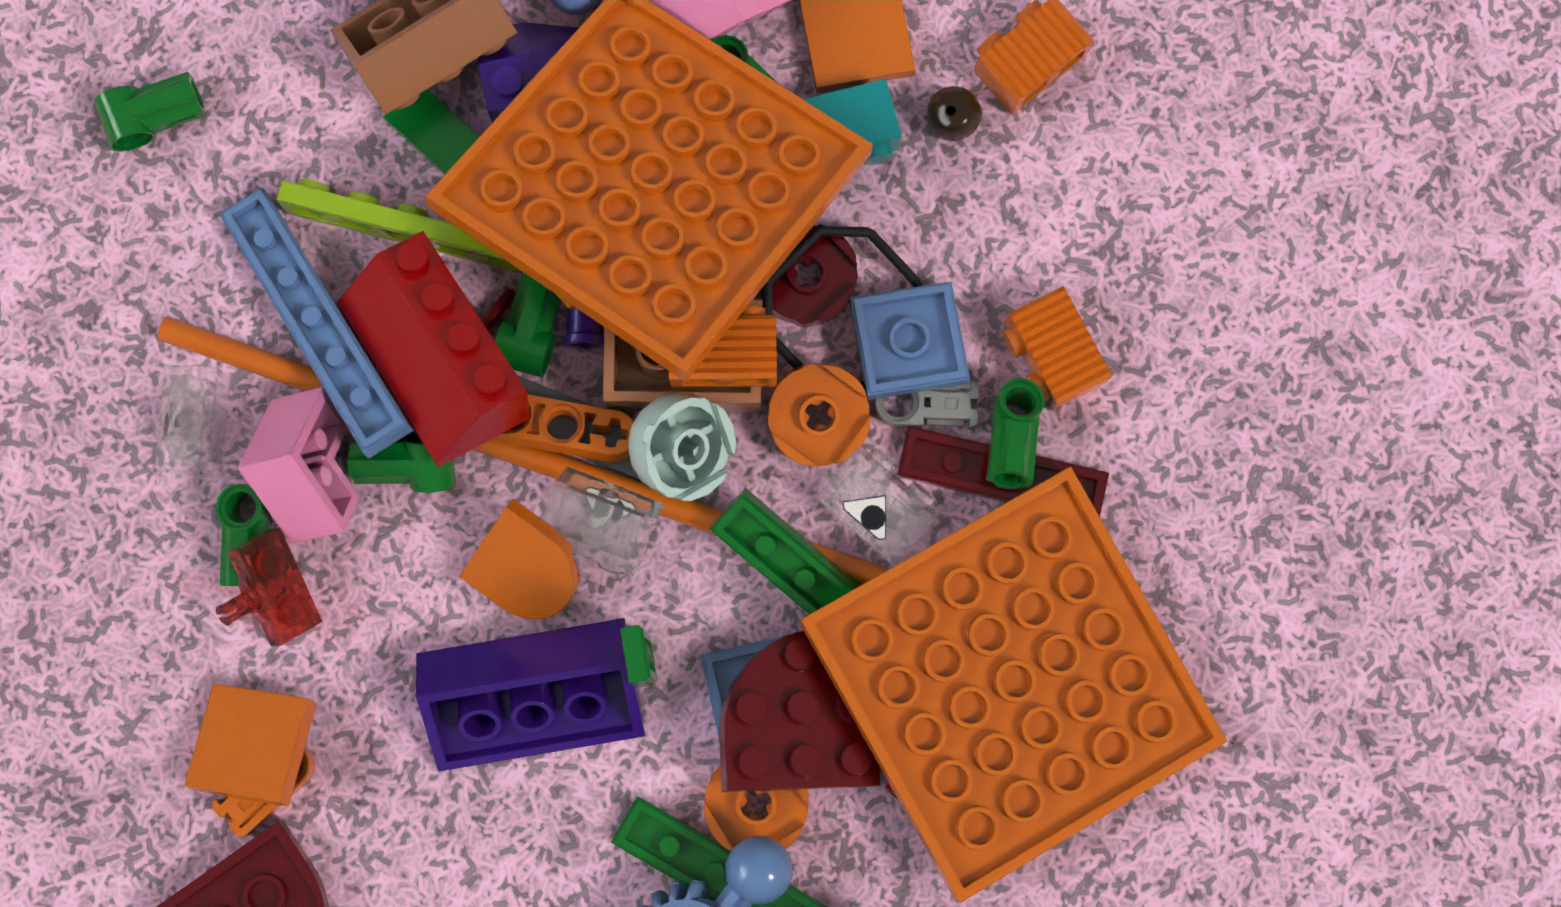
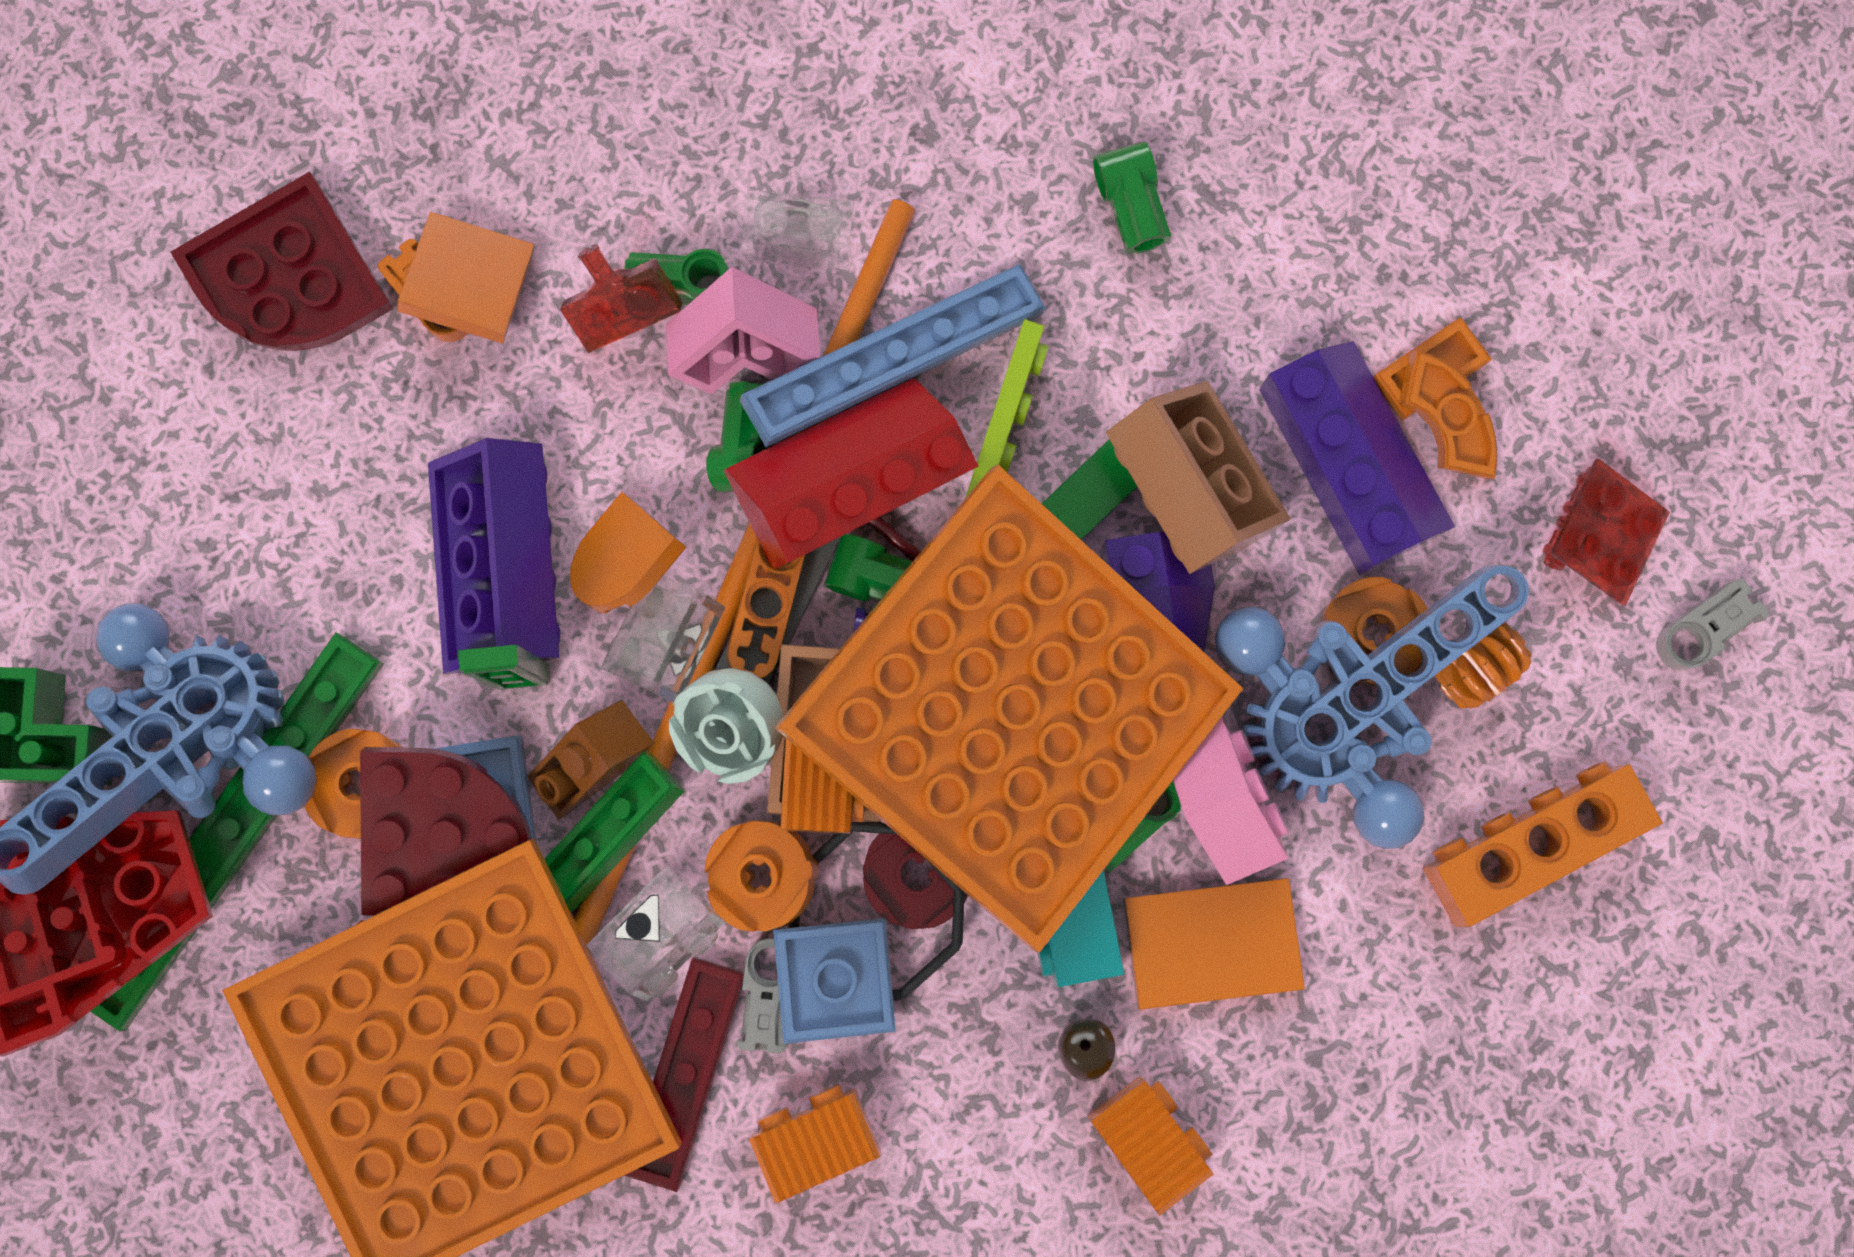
camera: 95 degrees right, 0 degrees up
(720, 583) = (589, 758): none -> dark orange slope
(1014, 435) = (715, 1088): green piece -> none

